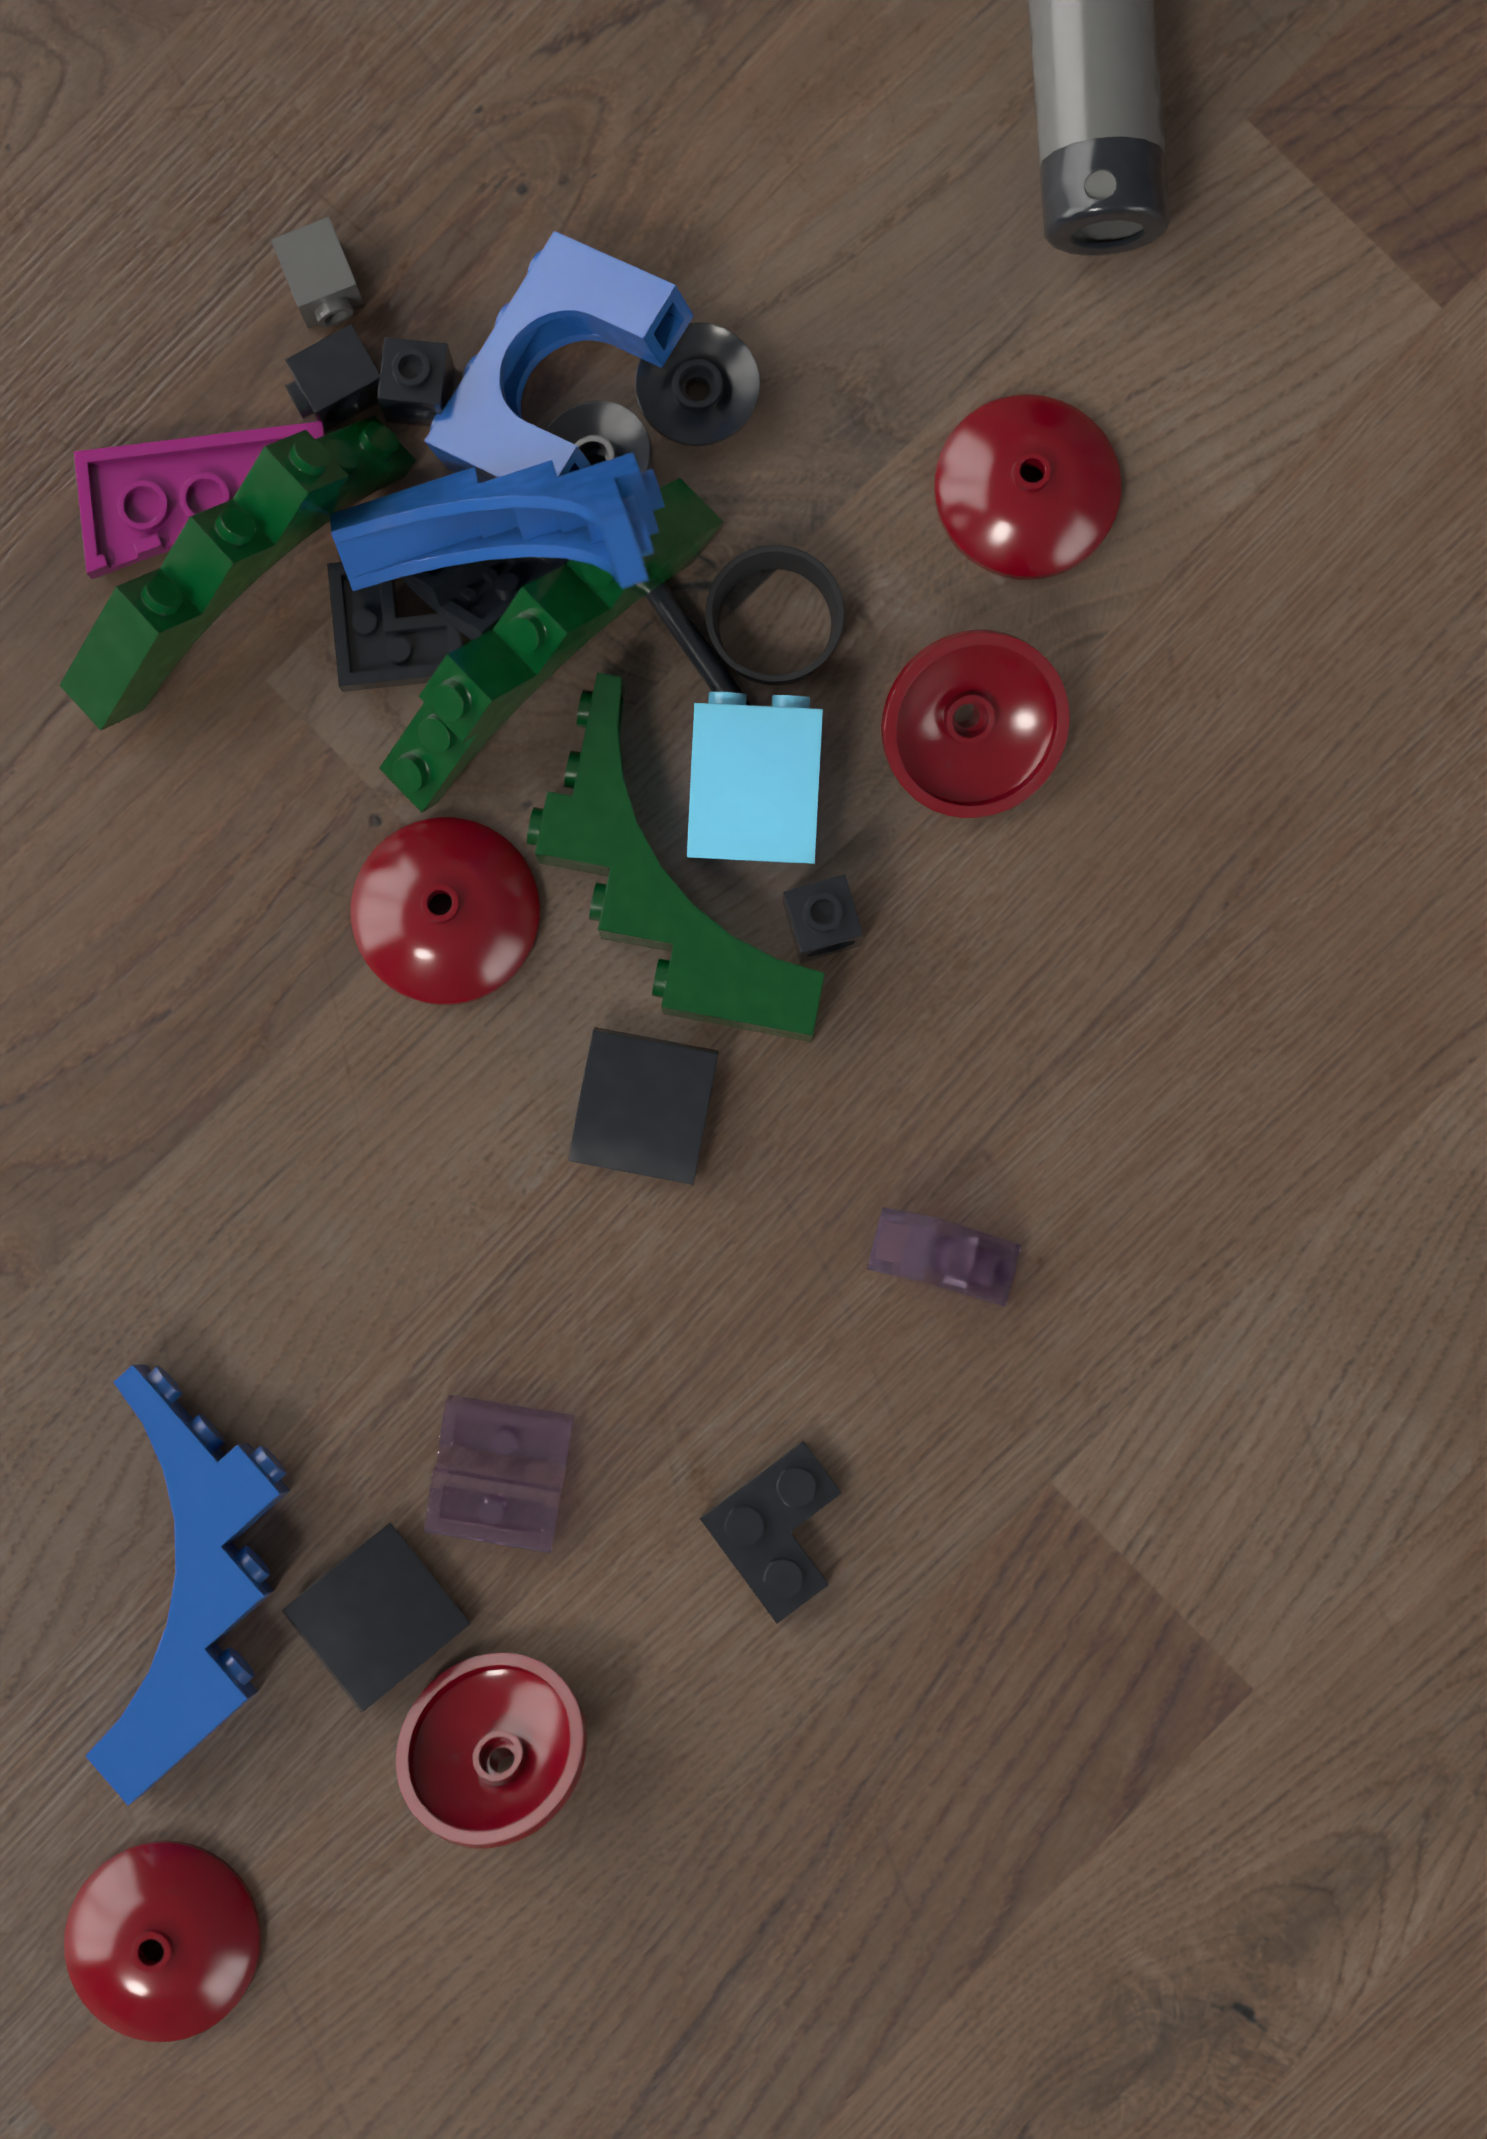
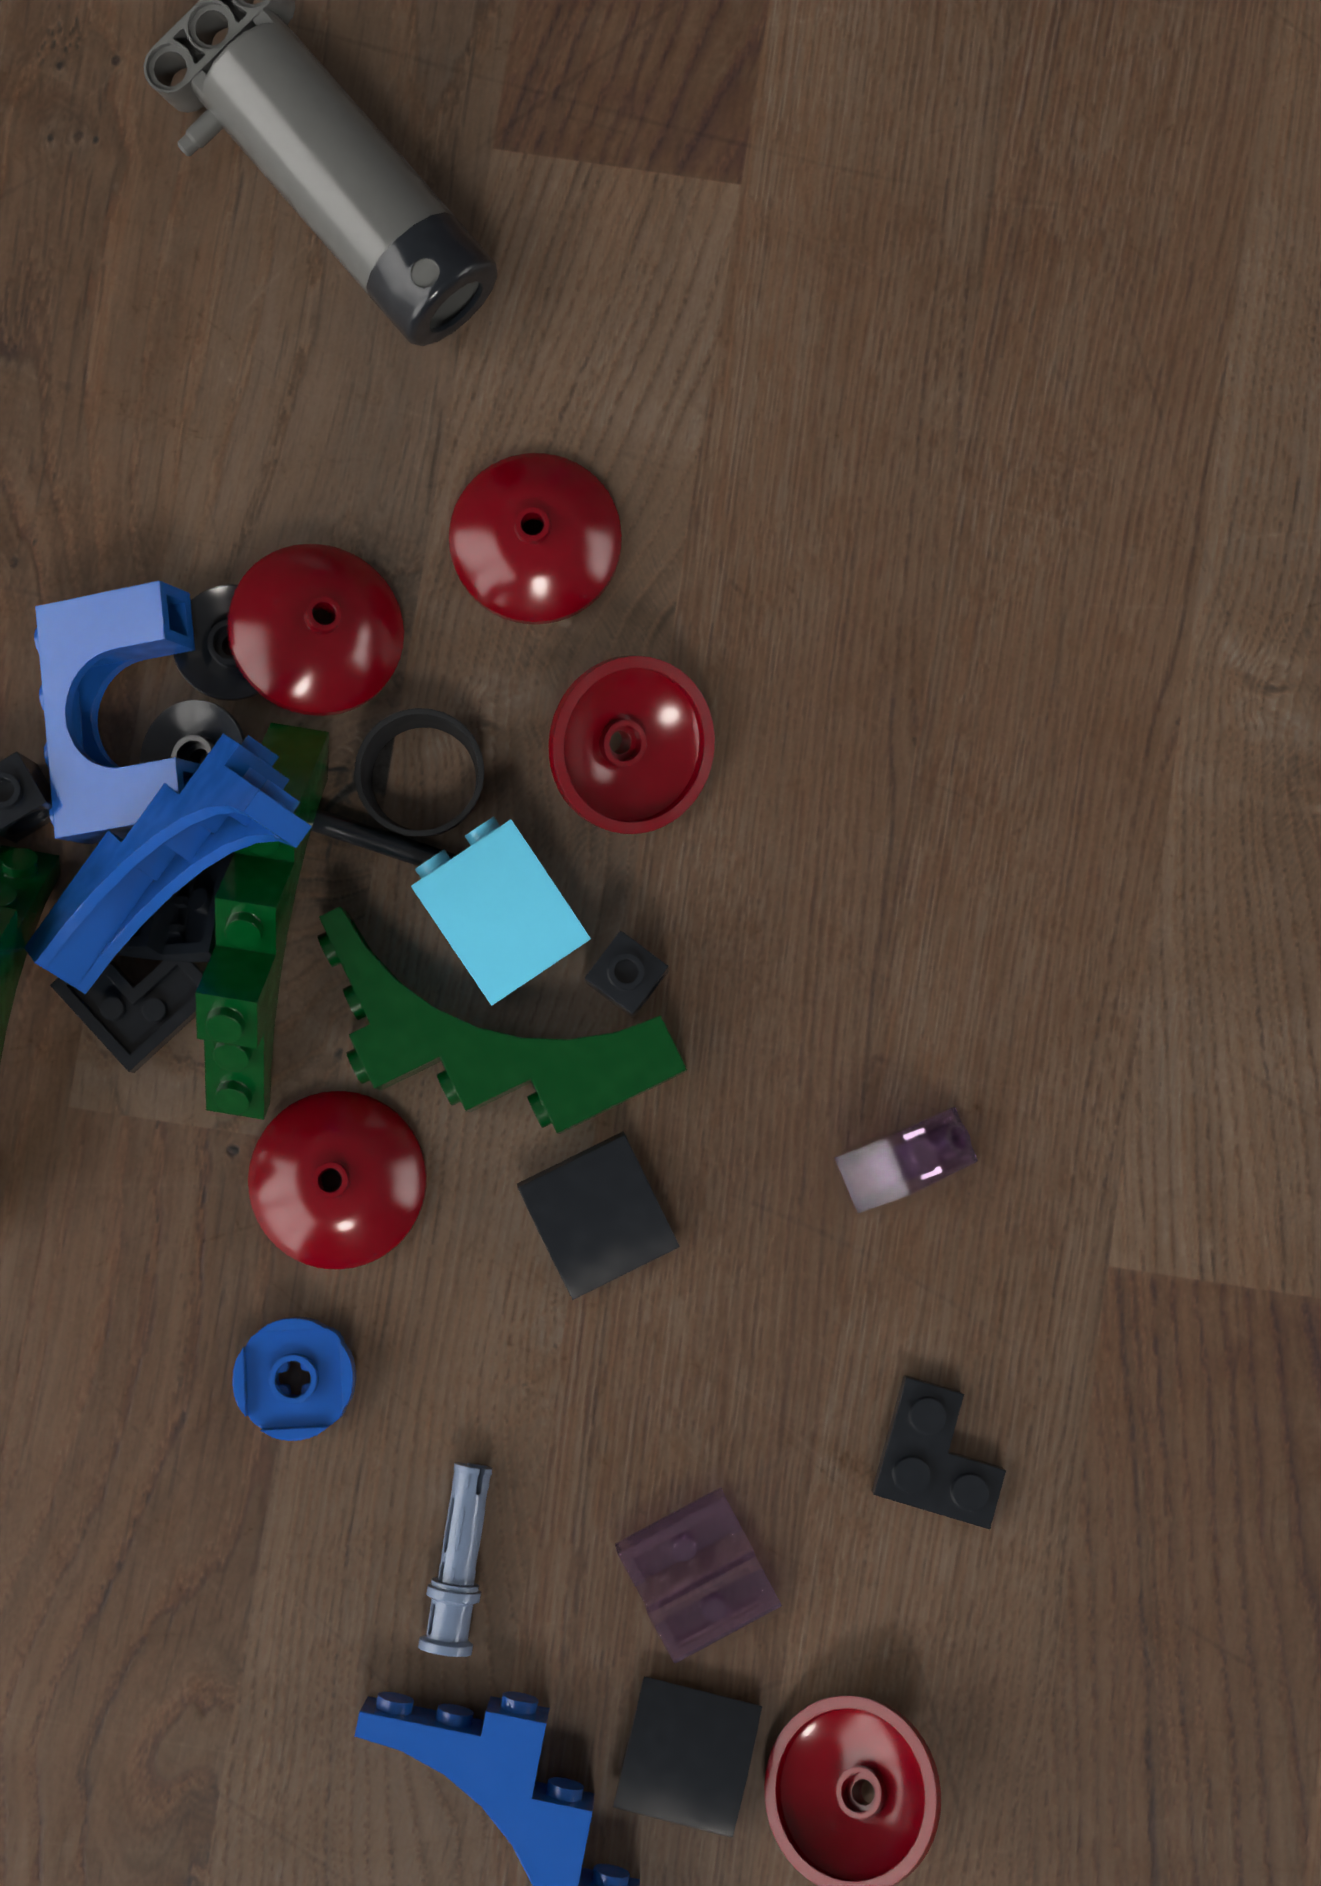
camera: 40 degrees left, 0 degrees up
(249, 1058) = (271, 1404): none -> blue plate
(286, 1327) = (454, 1588): none -> sand blue pin
(748, 448) = (308, 663): none -> dark red dish

